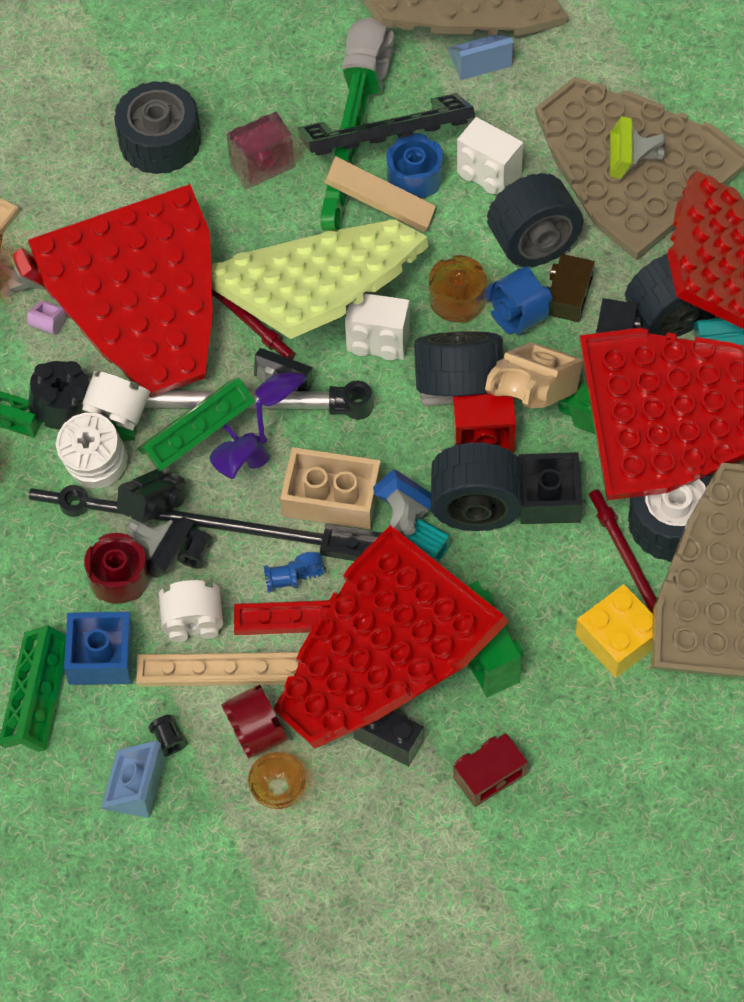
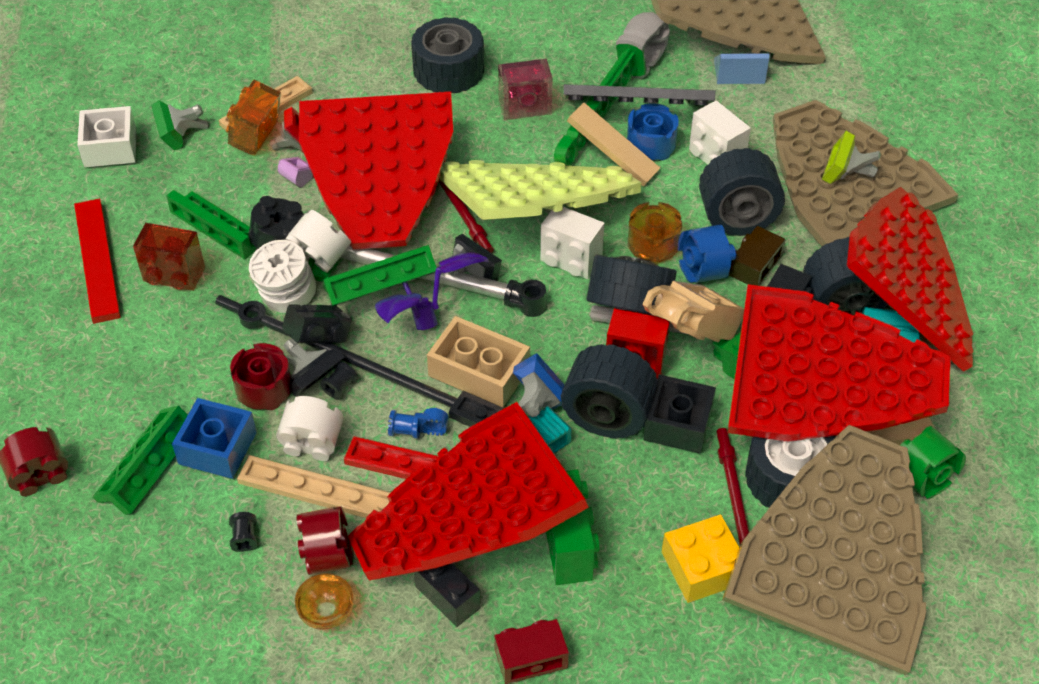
camera: 15 degrees right, 10 degrees down
(134, 779) = (198, 563): medium blue slope -> none

